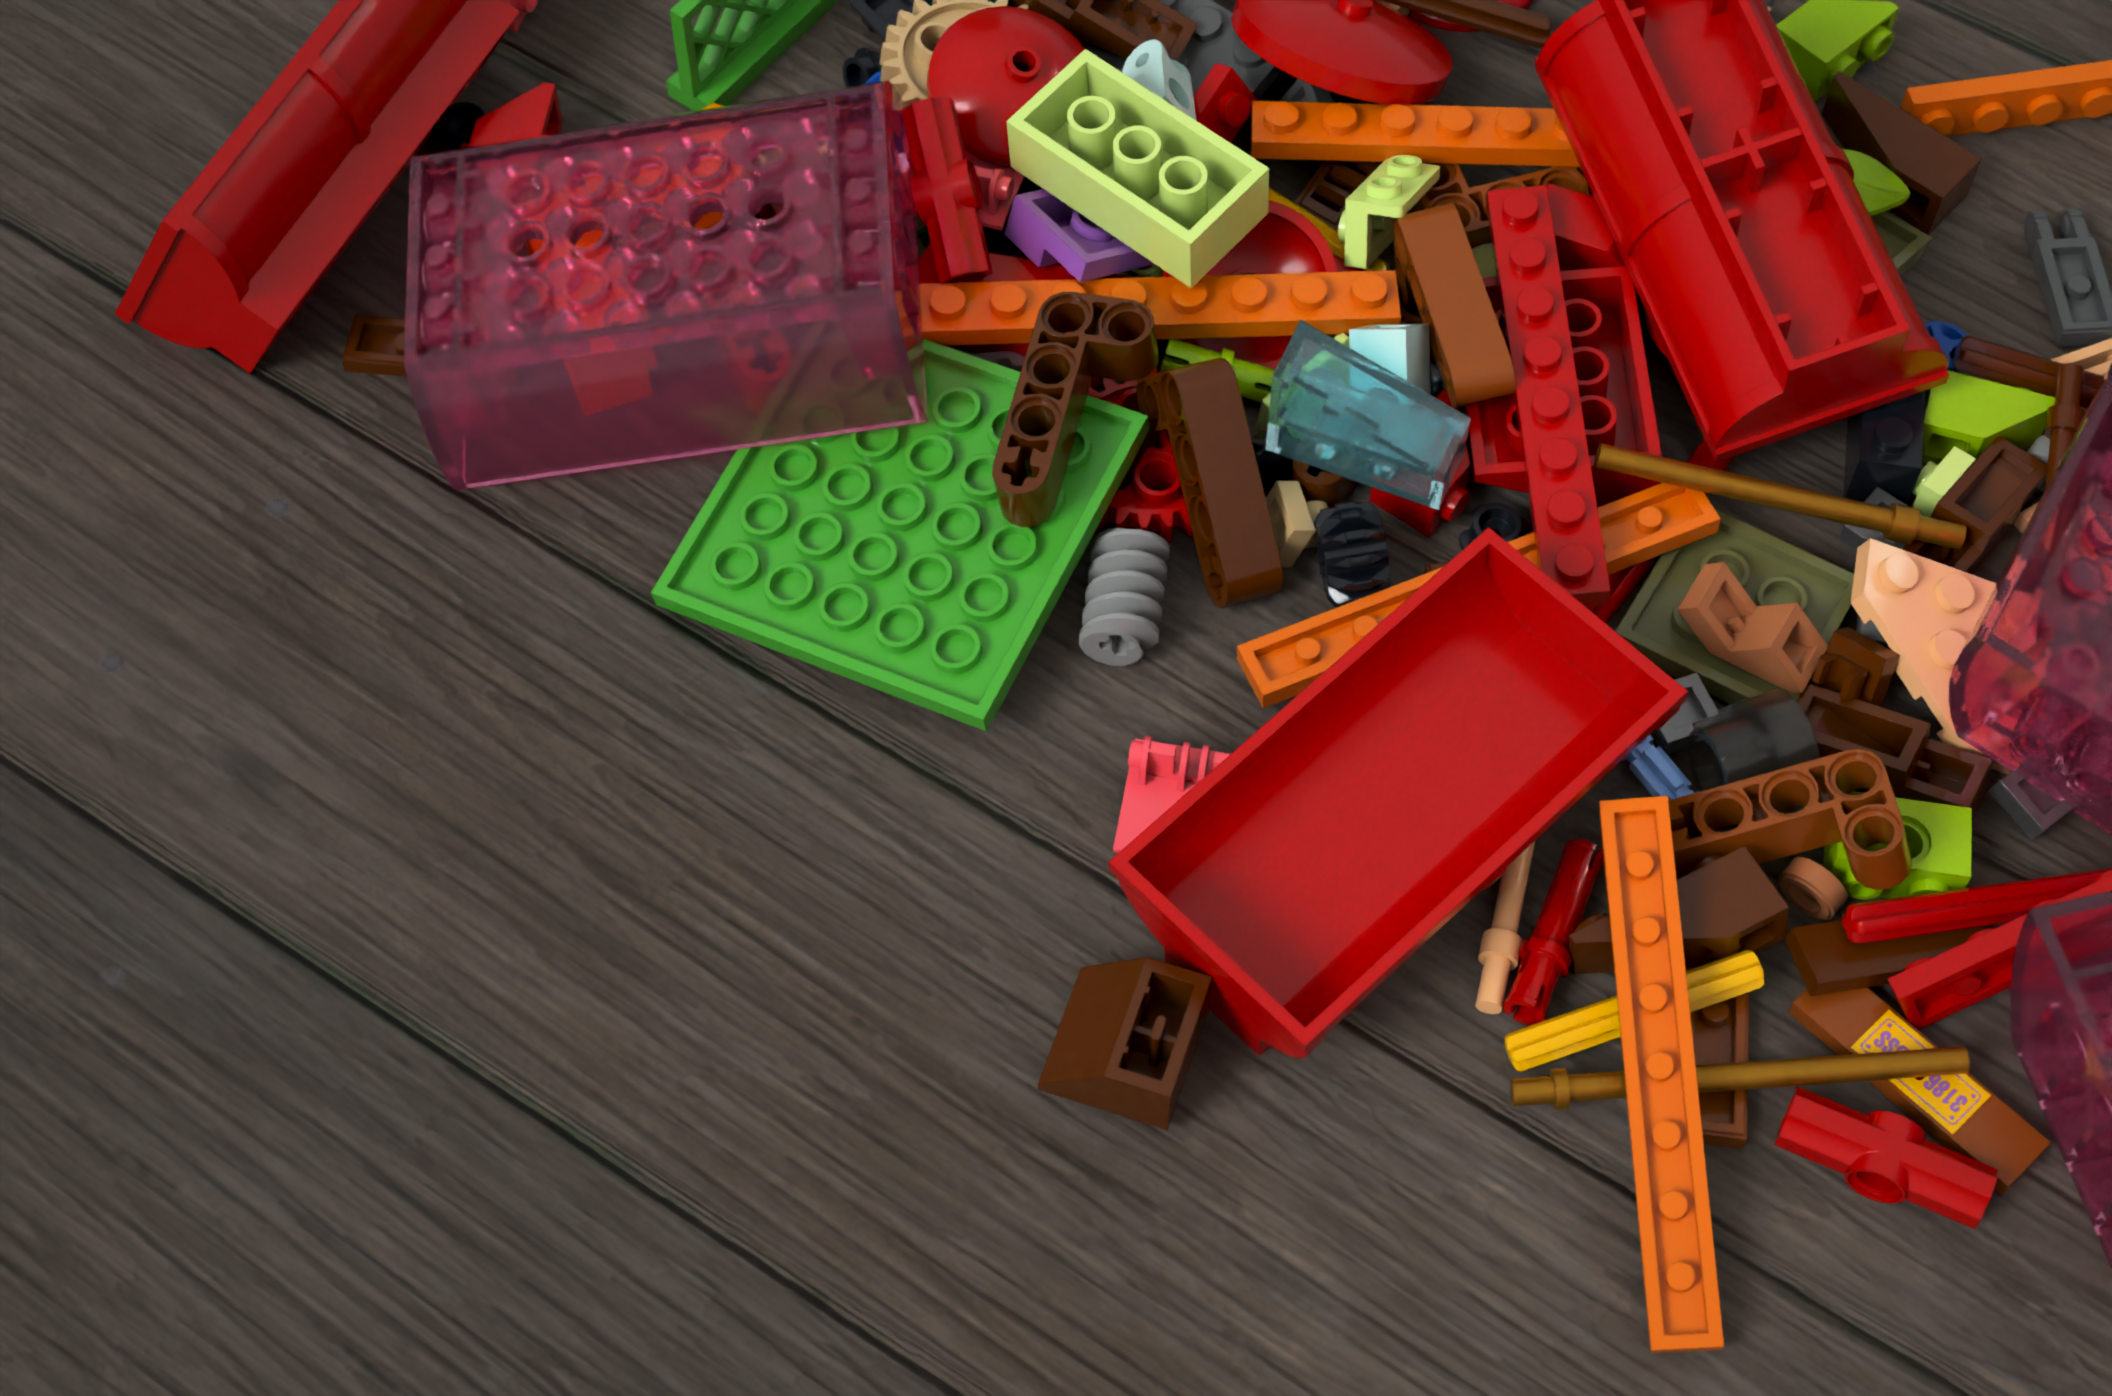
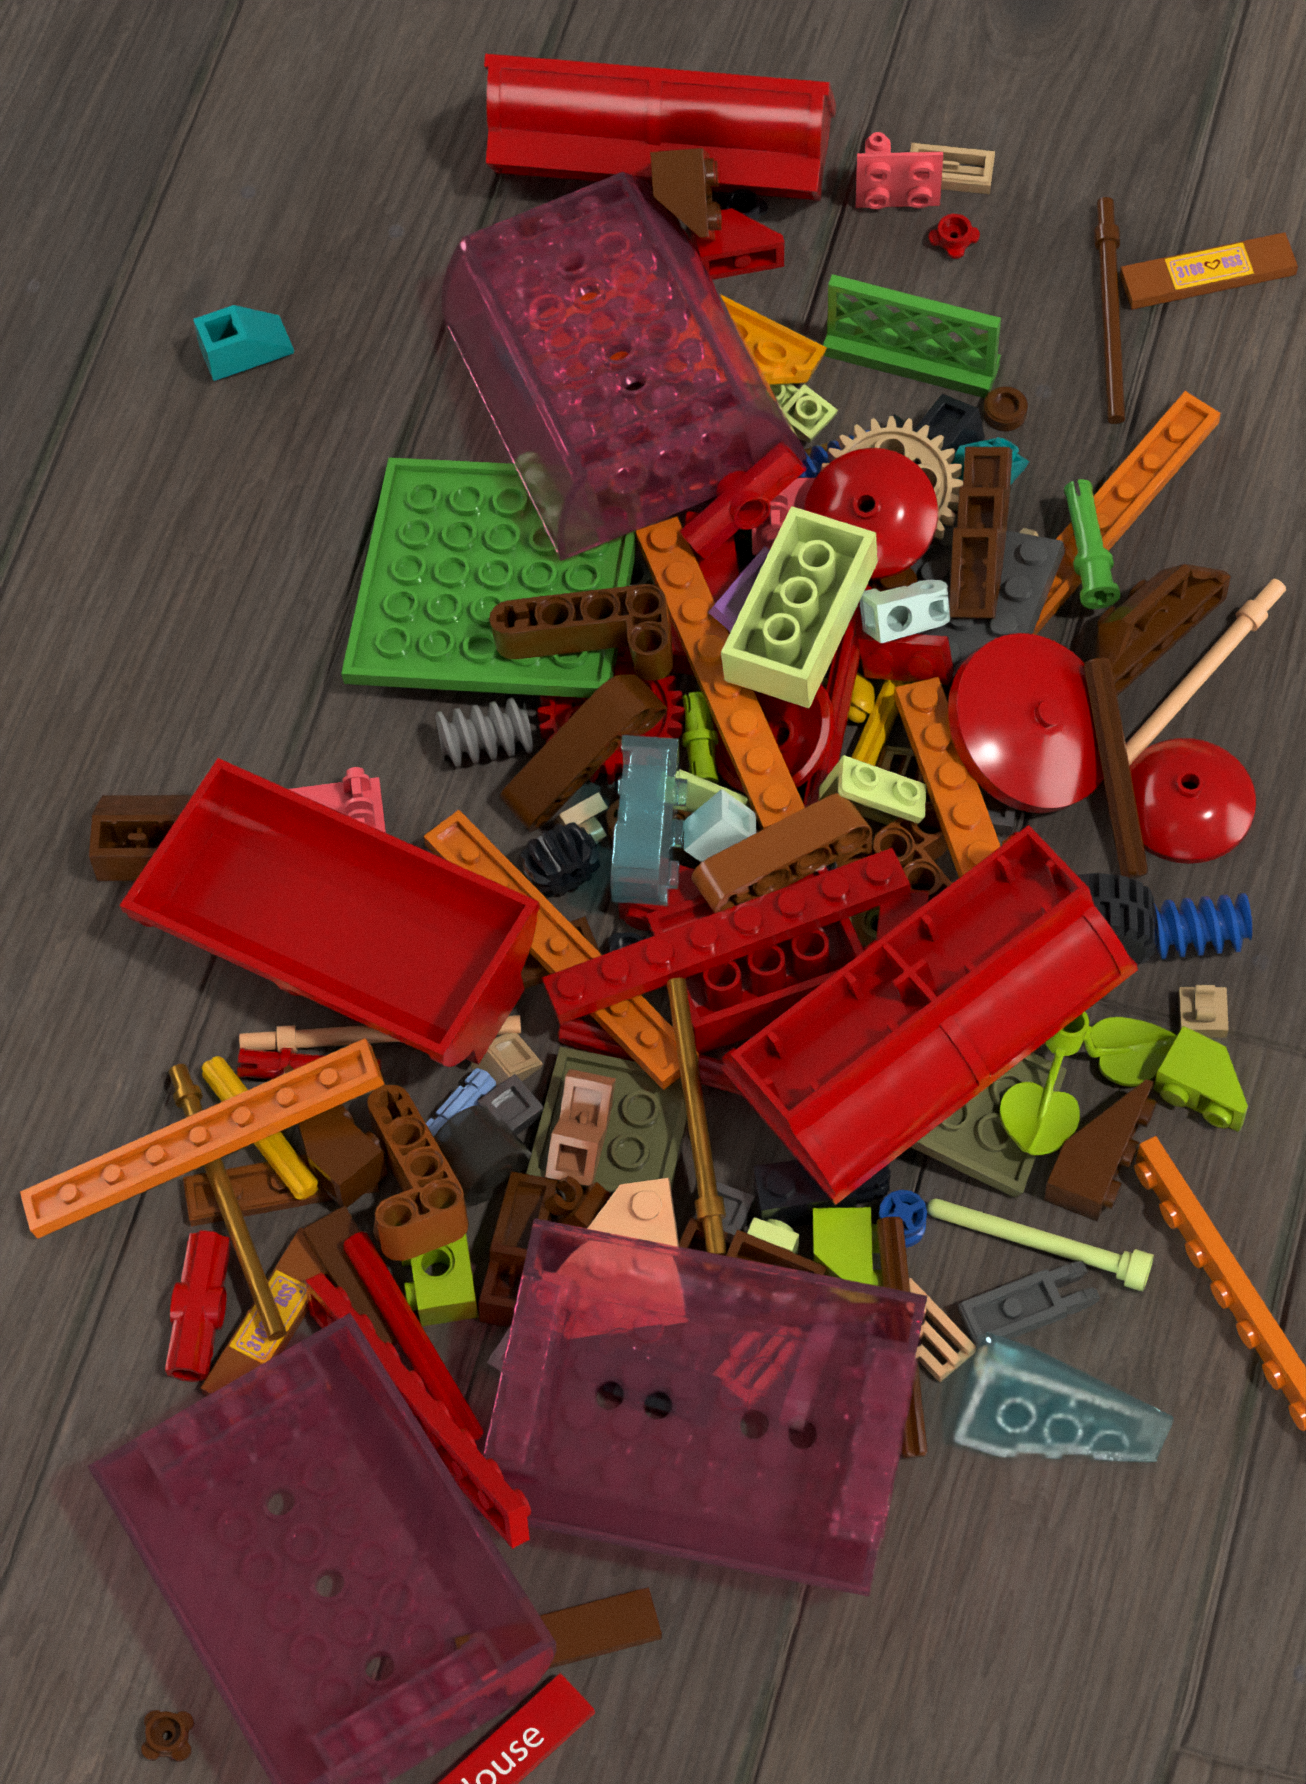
camera: 75 degrees right, 5 degrees up
(373, 721) = (240, 339): none -> teal slope
(466, 104) = (684, 185): none -> reddish brown slope
(2043, 172) = (1130, 1267): none -> yellowish green piece

